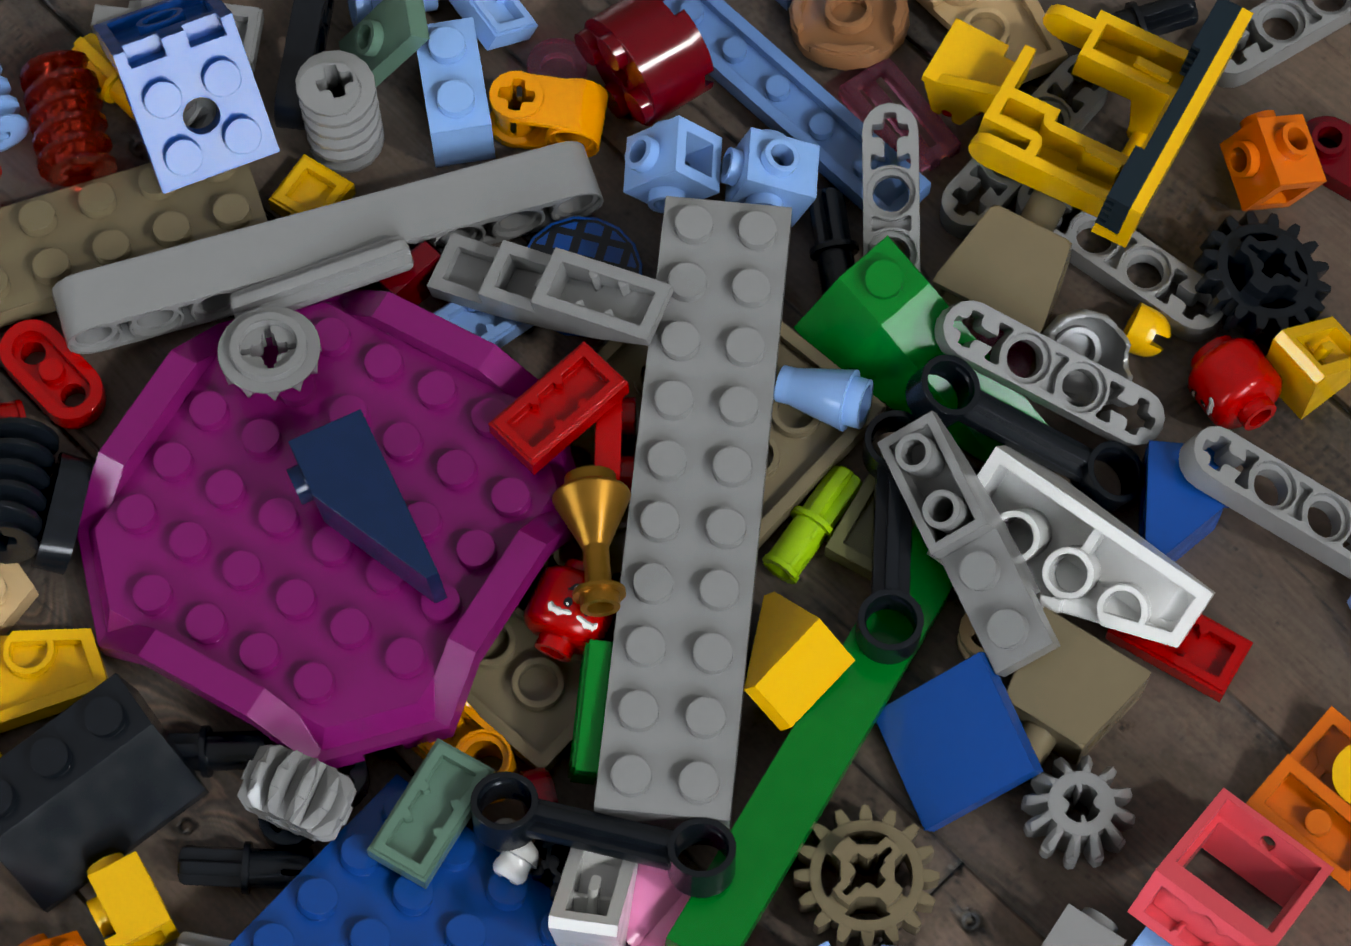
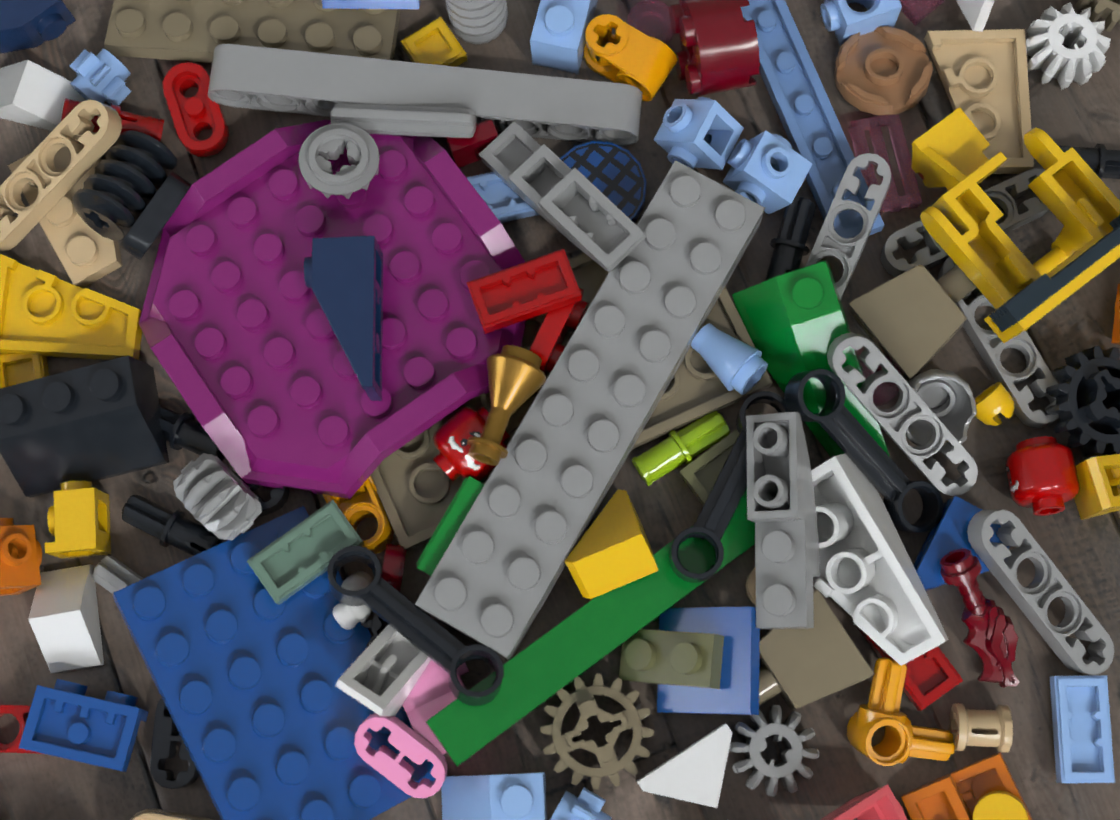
camera: 30 degrees right, 10 degrees up
(915, 757) = (673, 658): none -> olive plate
(1000, 877) = (694, 772): none -> white slope
(1213, 735) = (900, 736): none -> light orange axle
(1256, 572) = (989, 629): none -> dark red piece
(1313, 671) = (981, 727): none -> tan bush

